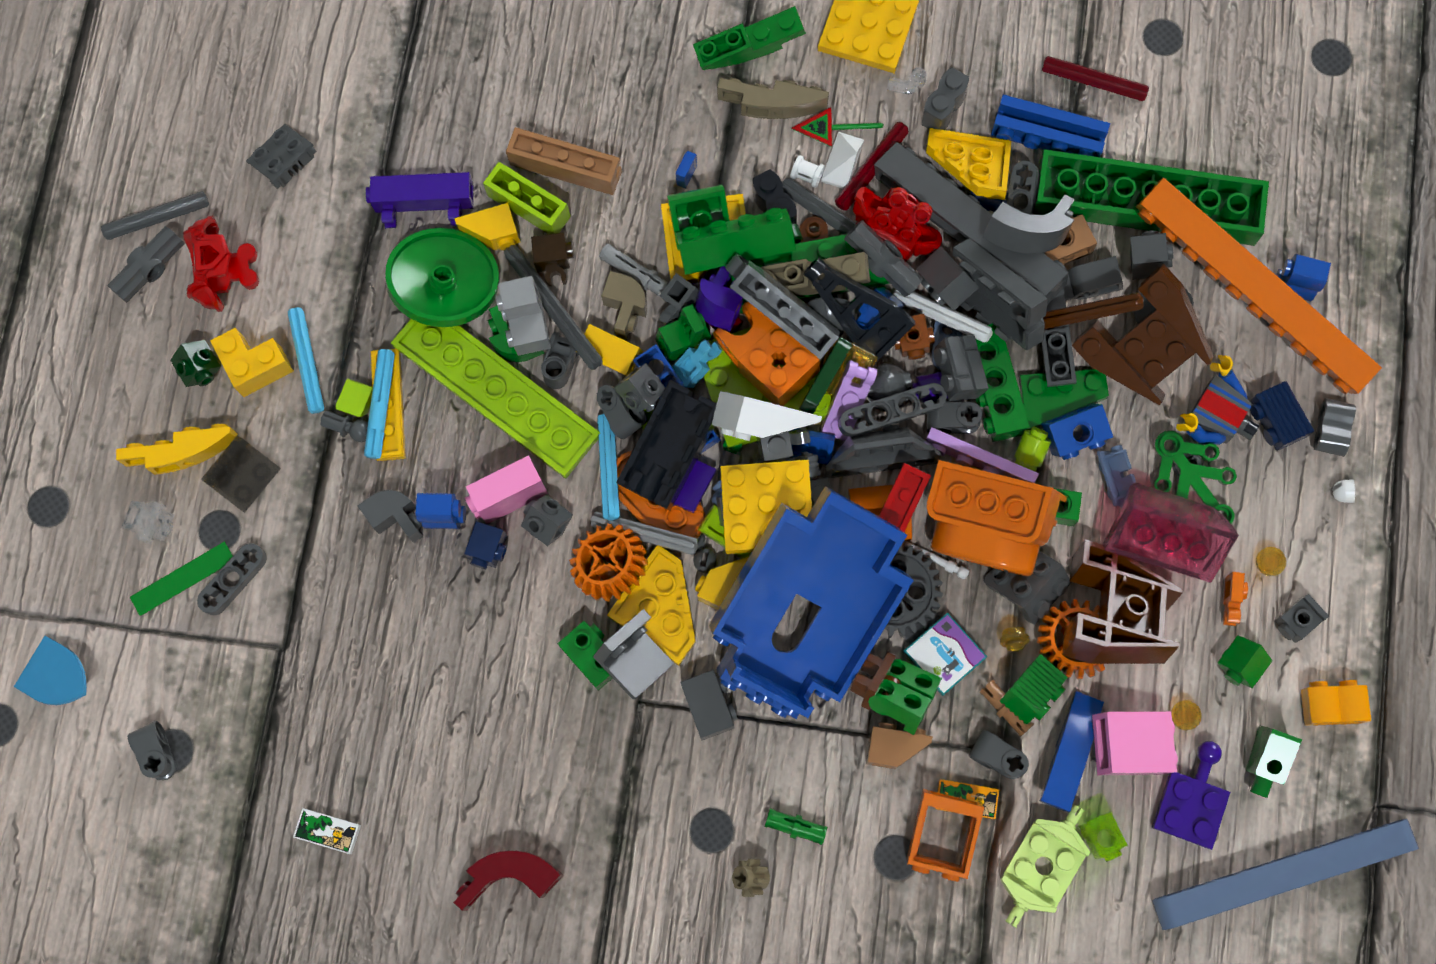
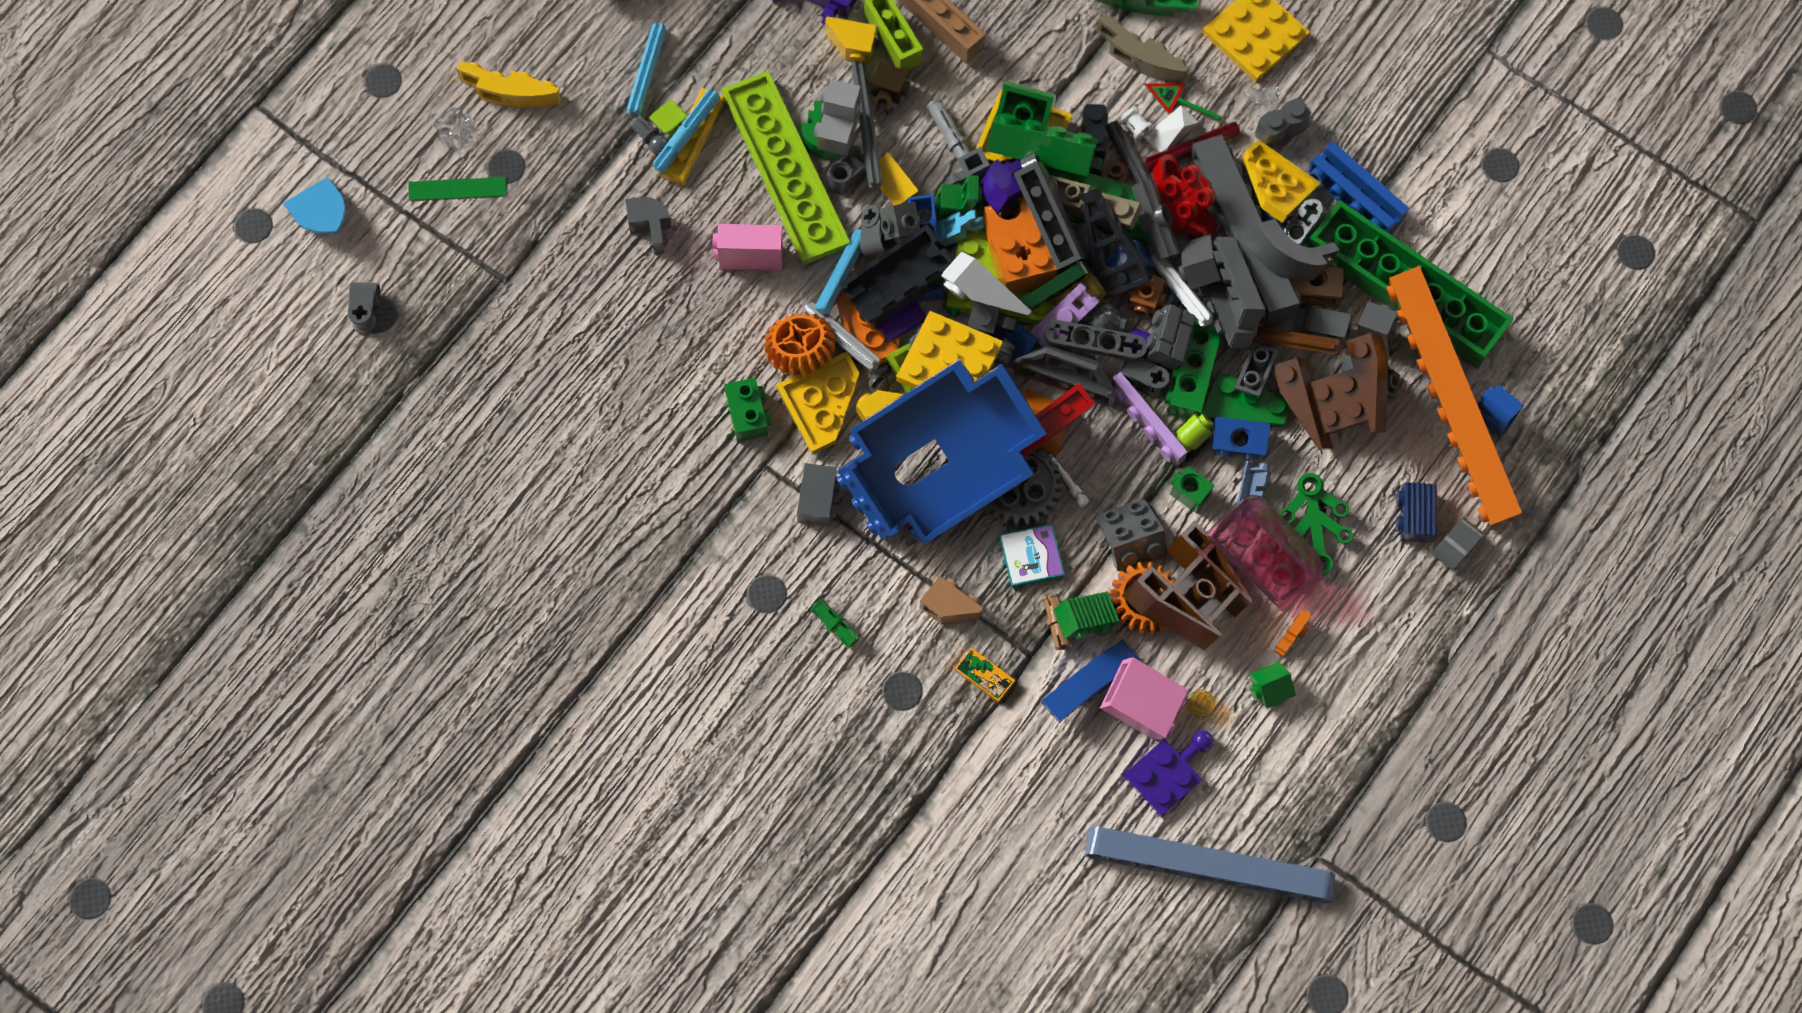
camera: 20 degrees right, 5 degrees down
(195, 363) = (558, 27): dark green brick -> none
(222, 600) = (475, 208): dark grey beam -> none
(240, 473) = (547, 130): clear smoke hinge -> none
(249, 367) = (602, 53): yellow brick -> none
(326, 831) = (464, 436): tile -> none
(439, 511) = (688, 236): blue brick -> none
(442, 277) = (790, 57): green dish -> none
(486, 546) = (710, 283): dark blue brick -> none
(526, 867) = (588, 532): dark red arch -> none
(546, 519) = (769, 287): dark grey brick -> none
(627, 296) = (931, 149): dark tan brick -> none
(633, 657) = (778, 421): bracket -> none
(686, 169) = (1037, 72): blue tile -> none
(751, 877) = (777, 641): dark tan gear -> none
(896, 689) = (975, 559): green hips -> none
(954, 804) = (969, 667): orange window -> none
(990, 517) = (1125, 461): orange brick -> none
(994, 752) = (1026, 651): dark grey piece -> none
(1014, 638) = (1094, 571): clear yellow plate -> none
(1065, 852) = (1033, 740): yellowish green plate -> none
(1093, 827) = (1080, 747): clear neon green brick -> none
(1095, 78) = (1421, 169): dark red axle -> none
(1220, 409) = (1369, 480): torso -> none
(1271, 561) = (1342, 622): clear yellow plate -> none
(1273, 747) = (1257, 760): torso -> none
(1309, 610) = (1333, 686): dark grey brick -> none
(1335, 704) = (1329, 758): light orange brick -> none
(1344, 491) = (1437, 598): white hinge -> none

